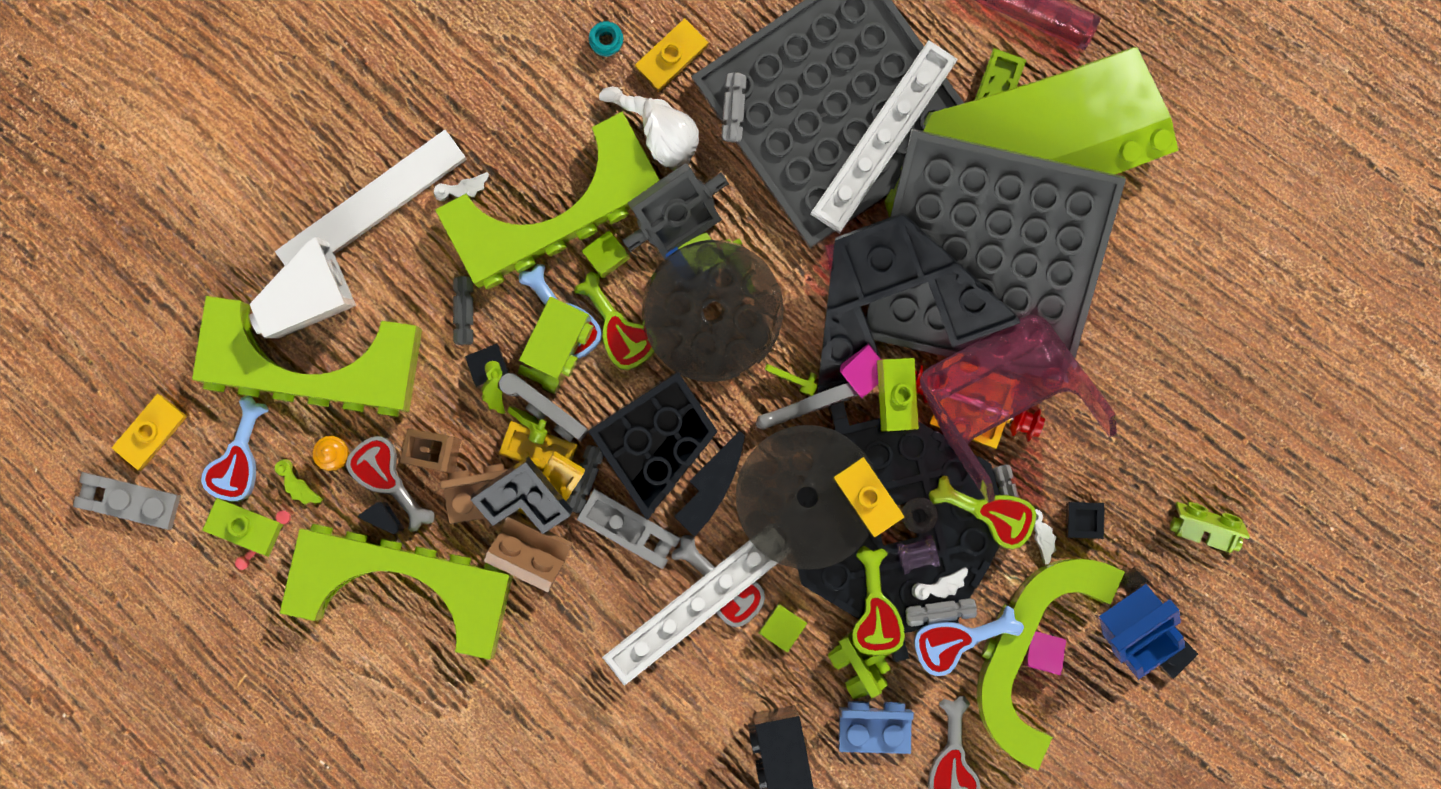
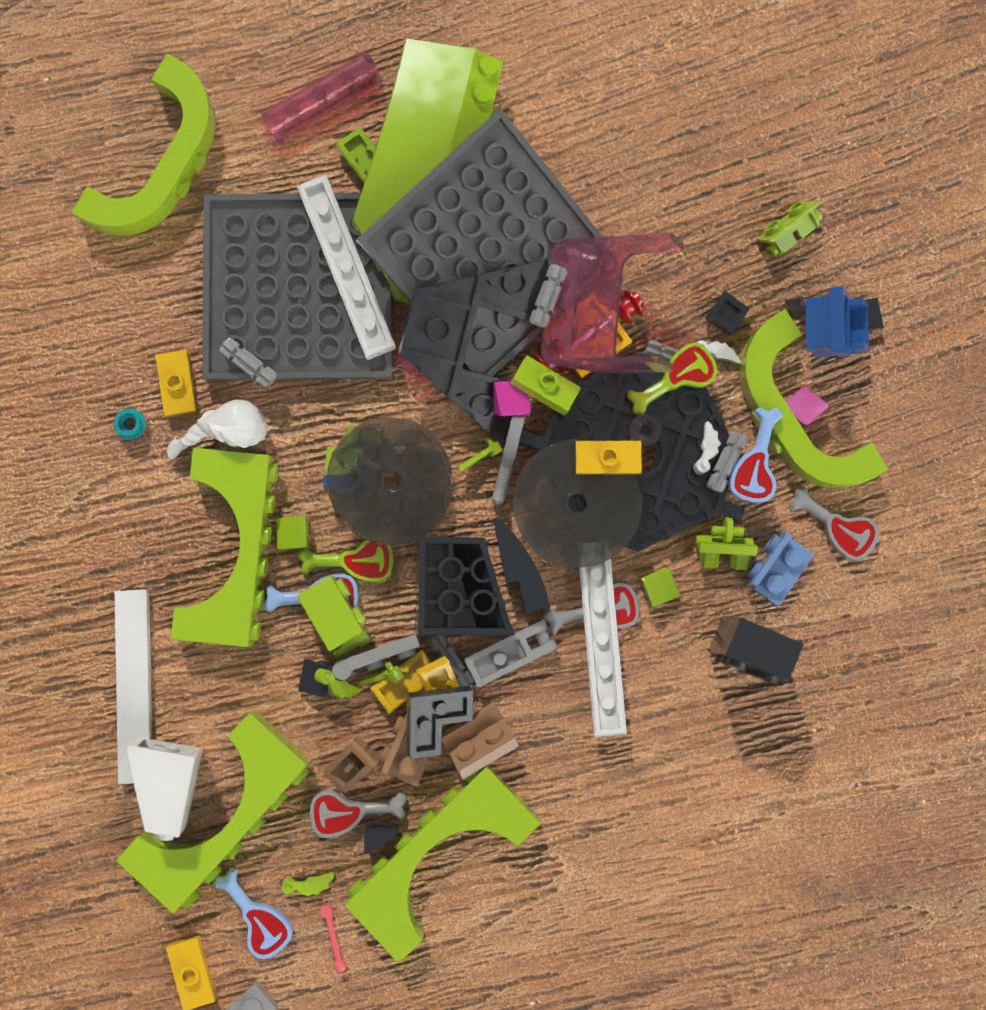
camera: 60 degrees left, 0 degrees up
(242, 527) = (313, 948): lime plate -> none
(330, 453) = (302, 842): light orange plate -> none
(463, 310) = (262, 669): dark grey axle -> none
(469, 186) = (171, 600): white piece -> none
(675, 210) = (295, 458): dark grey plate -> none
(880, 627) = (708, 512): lime piece -> none
(918, 555) = (674, 450): clear purple bush -> none
(982, 340) = (548, 296): none -> light grey axle

